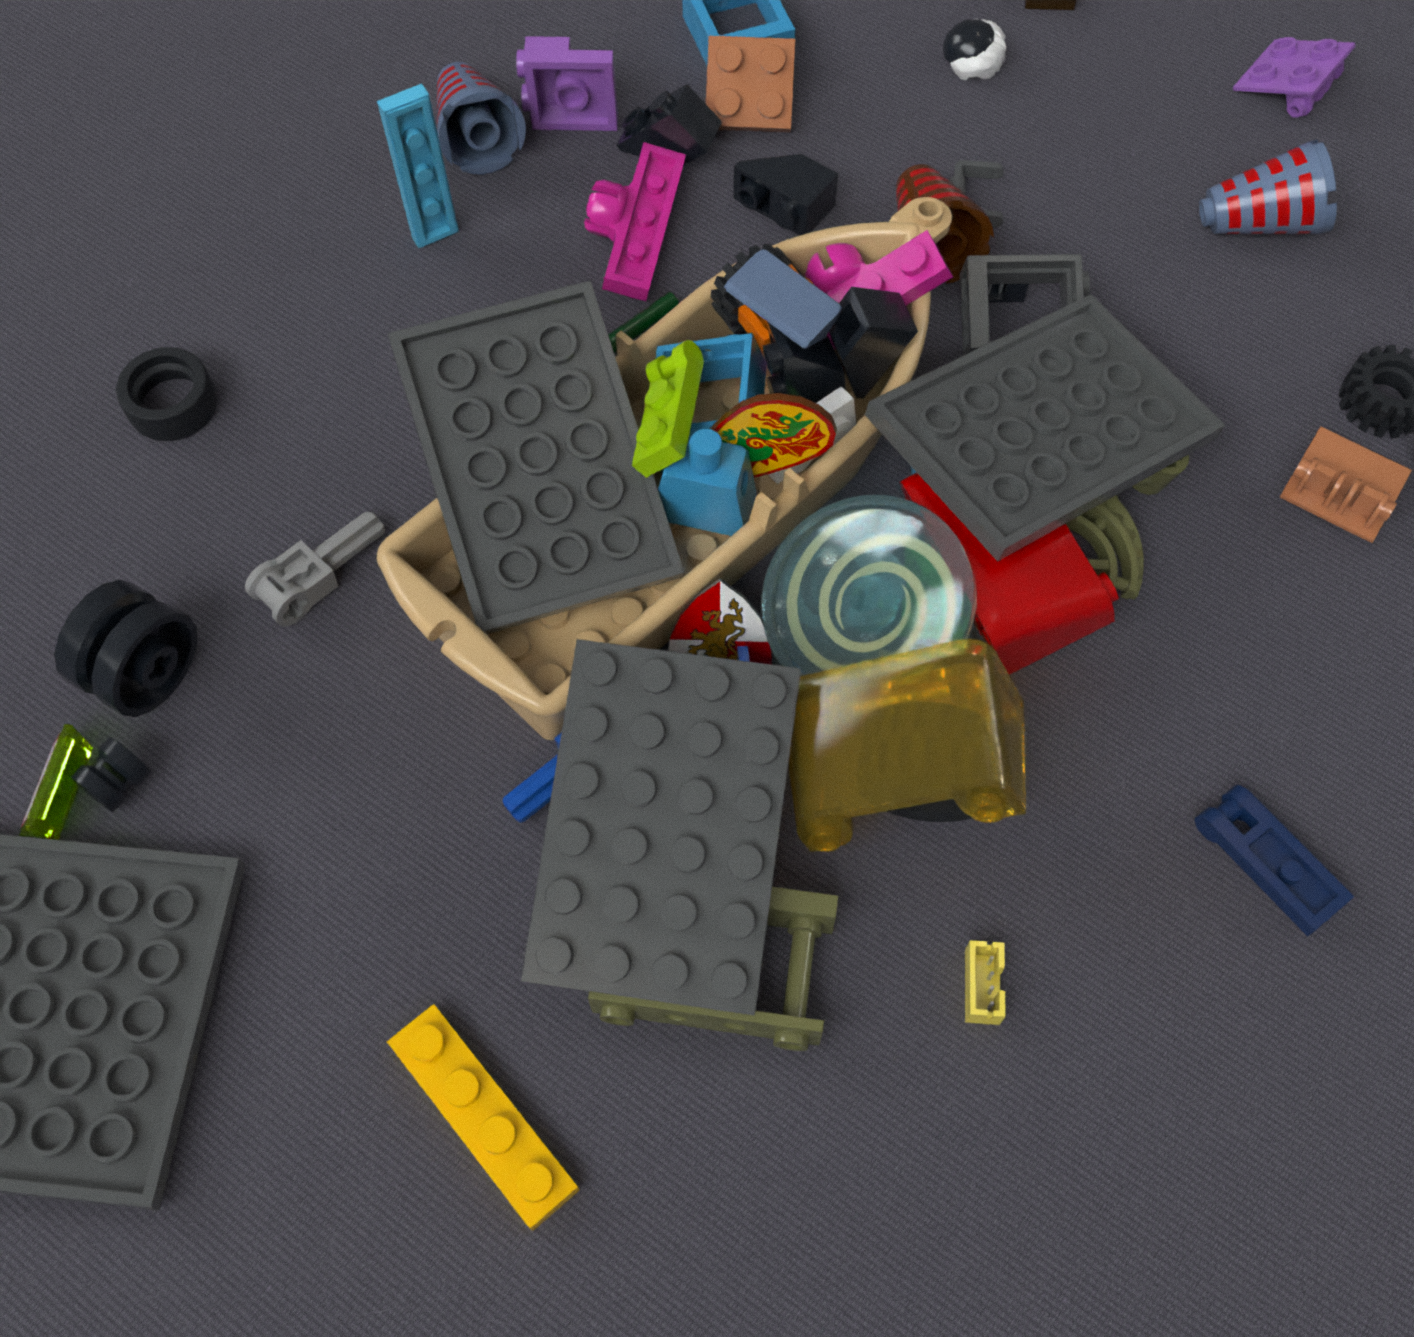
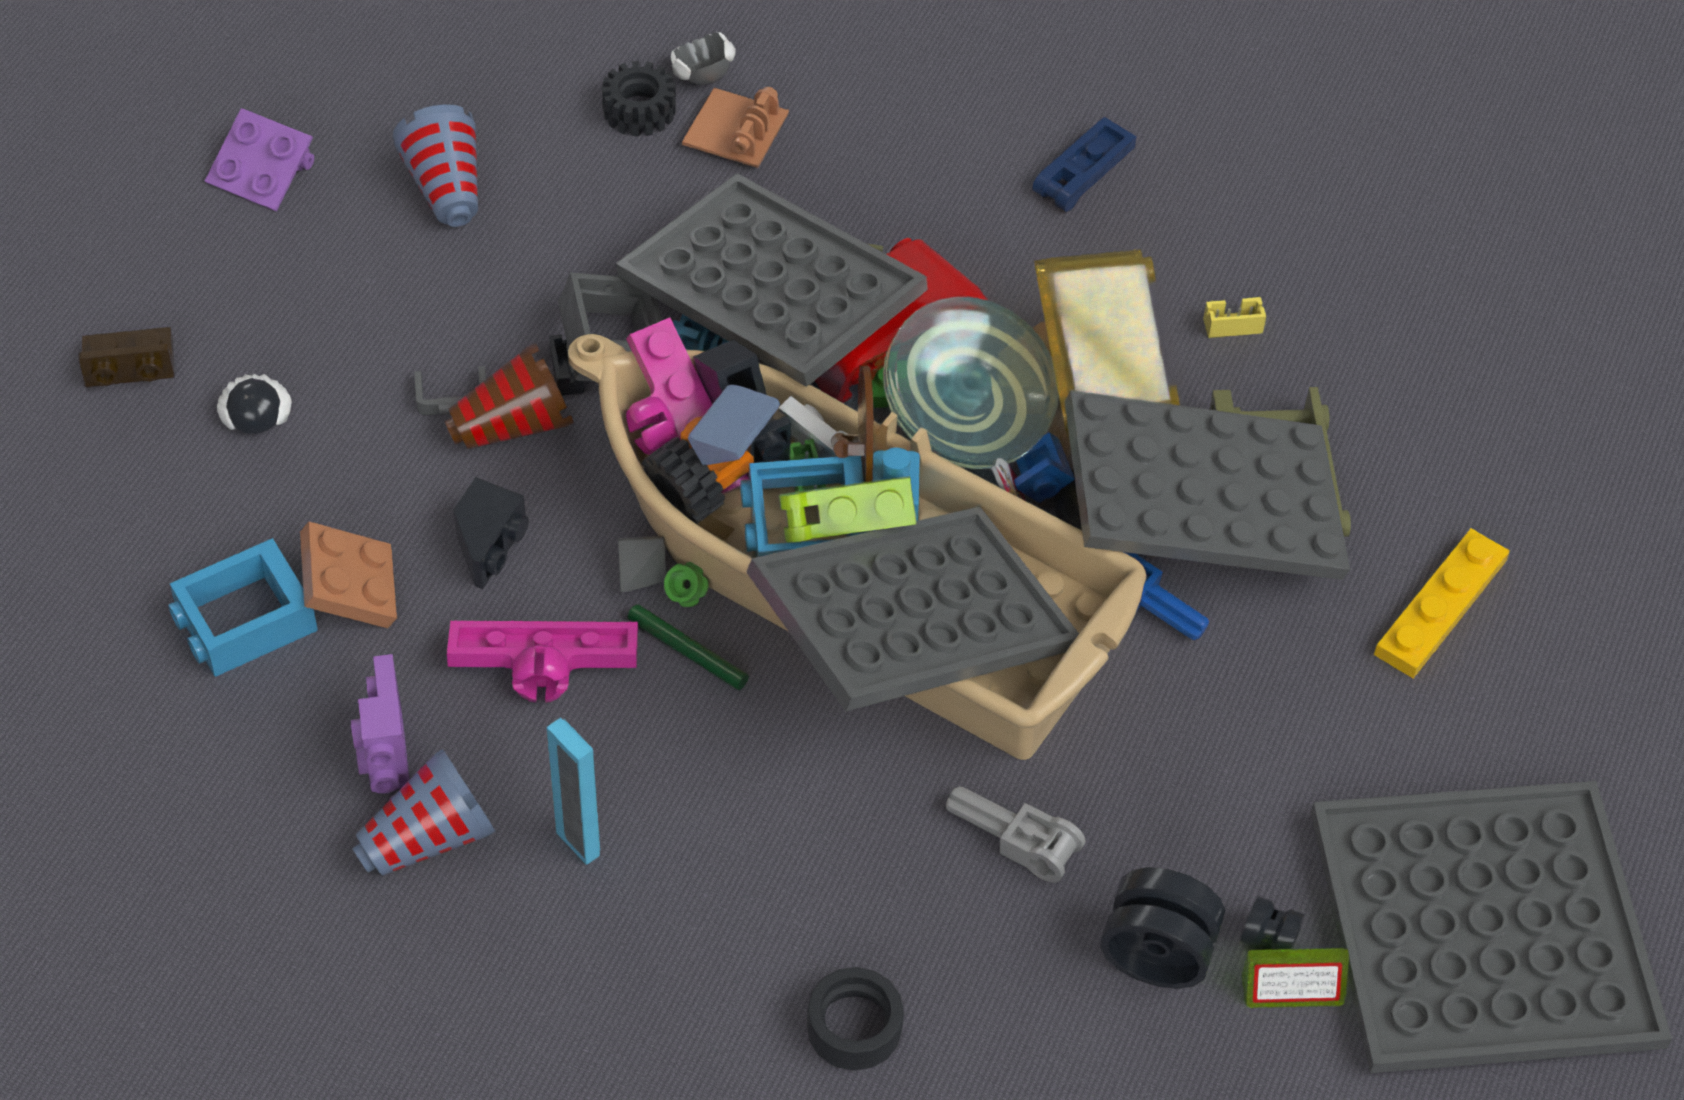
camera: 105 degrees left, 10 degrees down
(673, 122) = (418, 641): black slope -> none

